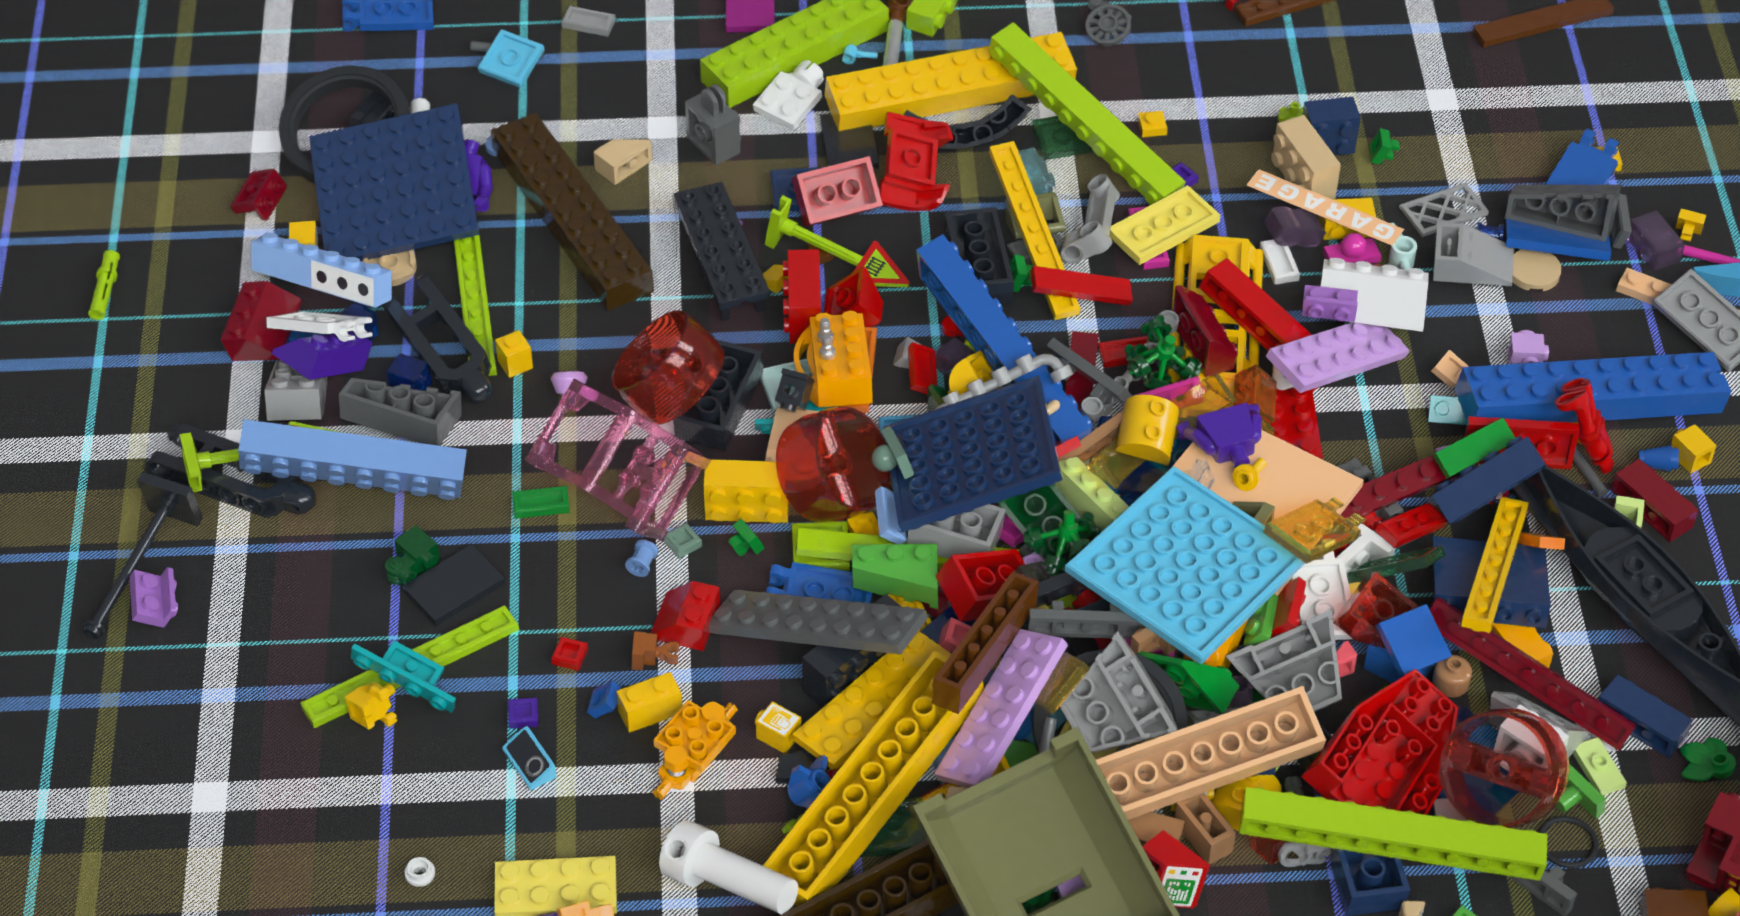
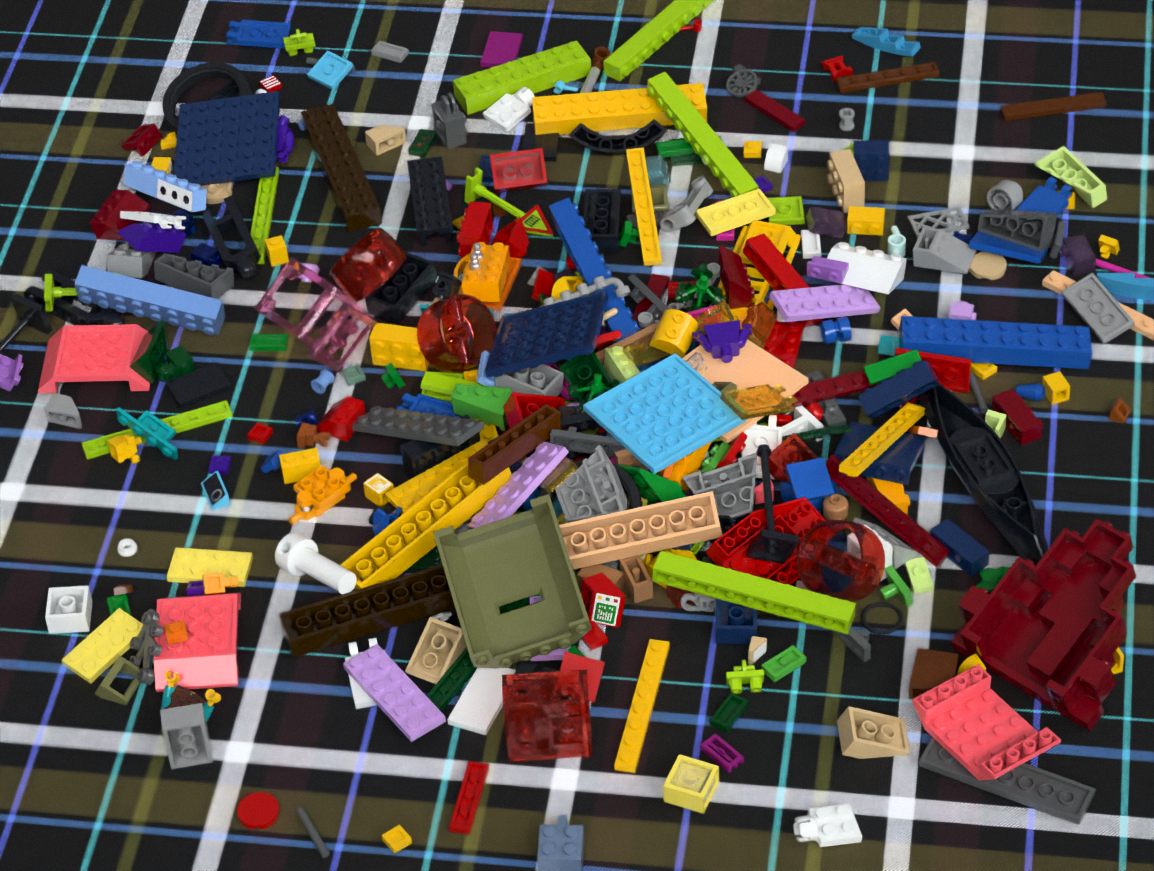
camera: 15 degrees right, 5 degrees down
(106, 276) = (21, 197): lime pin -> none
(260, 653) = (63, 411): none -> light grey slope
(290, 557) = (92, 354): none -> coral slope
(301, 192) = (169, 141): none -> yellow tile
(371, 542) = (151, 352): none -> dark green slope
(427, 88) = (270, 84): none -> red tile
(454, 18) = (299, 41): none -> lime hips
(640, 616) = (313, 419): none -> clear blue bush
(677, 159) = (422, 143): none -> dark green tile
(891, 455) = (495, 330): sand green tile -> none
(912, 163) = (575, 157): red piece -> none
(1044, 133) = (673, 148): none -> green tile
(1081, 285) = (665, 244): red tile -> none
(1165, 61) = (775, 110): none -> dark red tile
(1191, 135) = (776, 158): none -> white brick
(1235, 214) = (788, 210): none -> lime tile
(1247, 476) = (728, 367): yellow plate -> none
(1270, 66) = (846, 116): none -> light grey bush
(1325, 207) = (849, 210): light nougat sticker -> none
(1354, 249) = (864, 238): dark pink tile -> none
(1362, 393) = (836, 330): none -> blue wheel
(1382, 147) = (907, 177): green tile -> none
(1396, 754) = (769, 544): none -> black tile
(1411, 525) = (840, 414): red tile -> none
(1529, 163) = (1005, 195): none -> light grey piece
(1593, 435) = (982, 362): red piece -> none
(1614, 120) = (1075, 174): none -> yellowish green wedge

